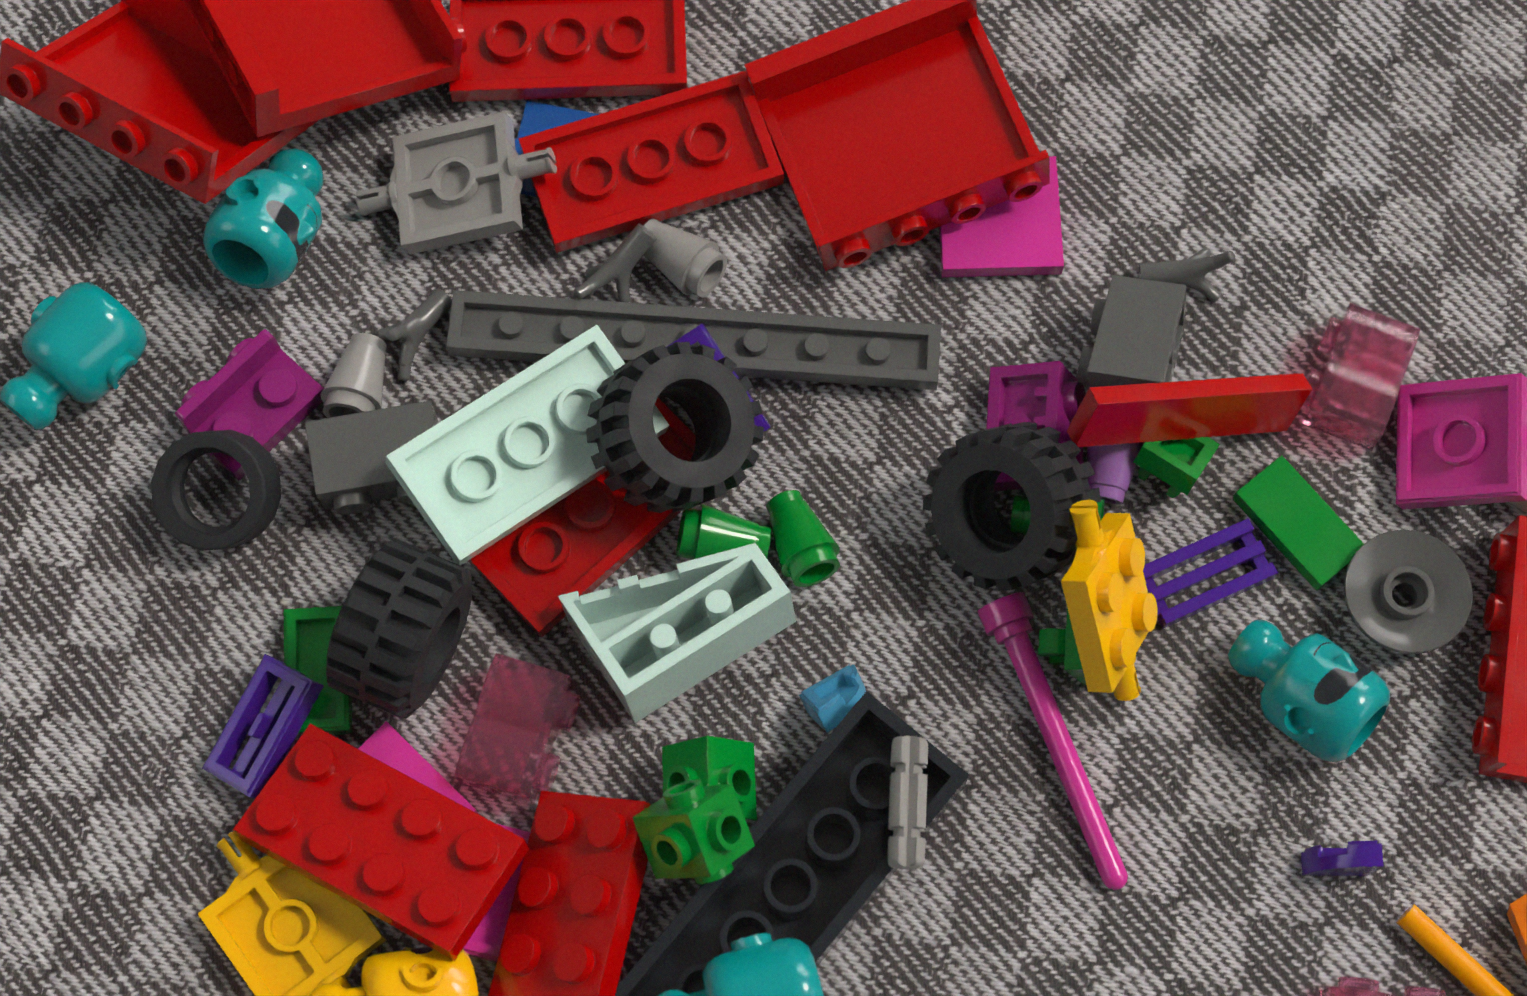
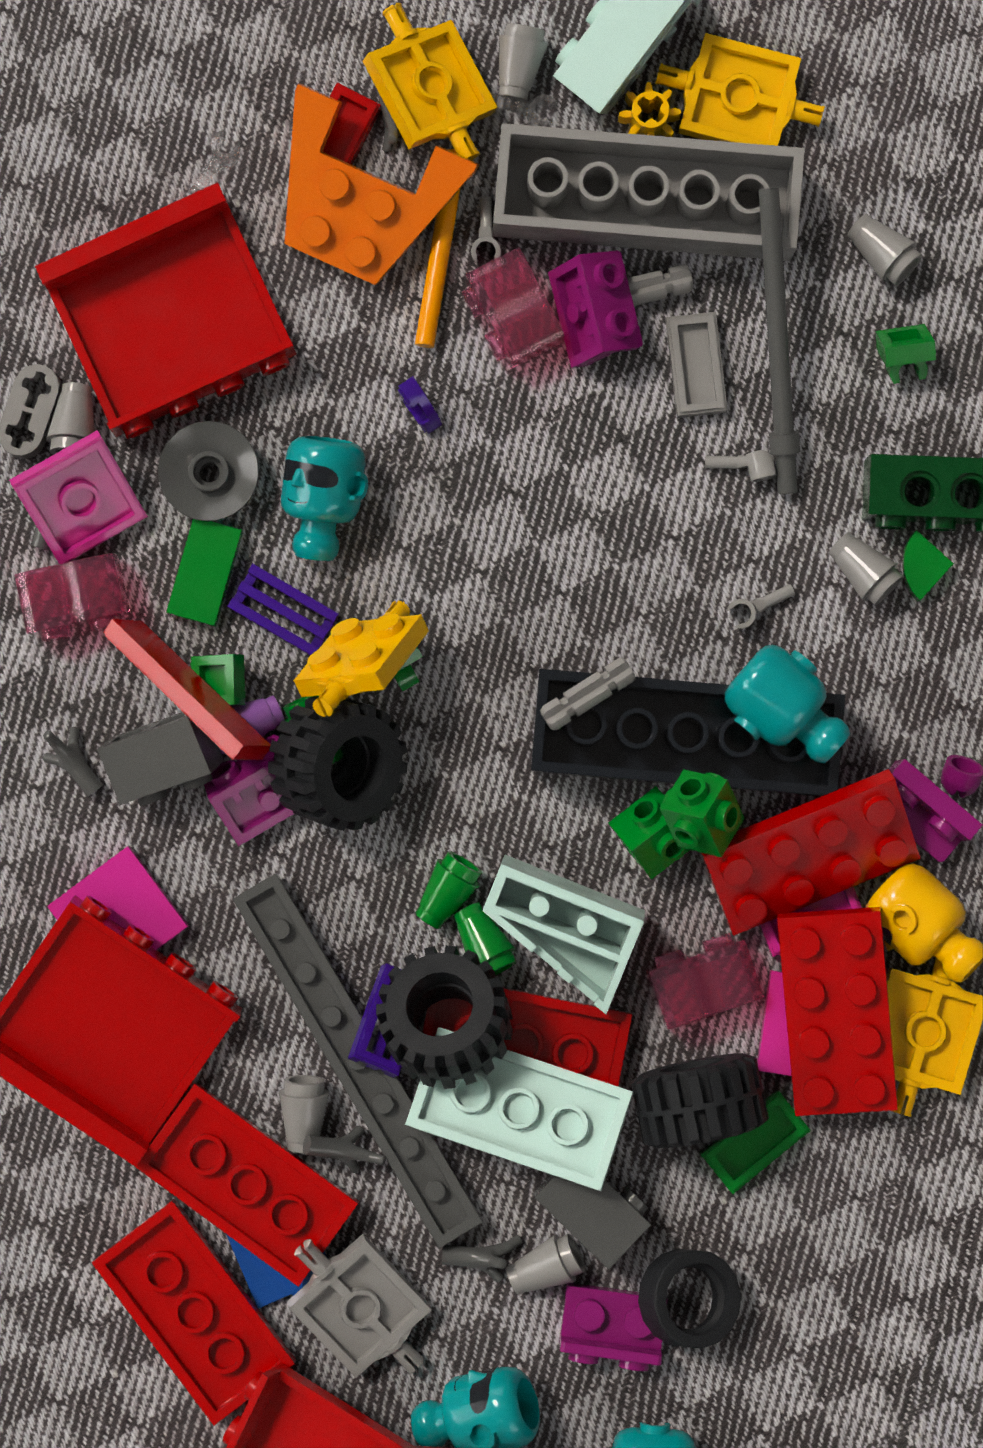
camera: 120 degrees left, 15 degrees up
(269, 731) = (816, 1128): dark purple tile -> none
(833, 697) = (538, 792): dark azure tile -> none
(1010, 625) = (411, 711): dark pink piece -> none

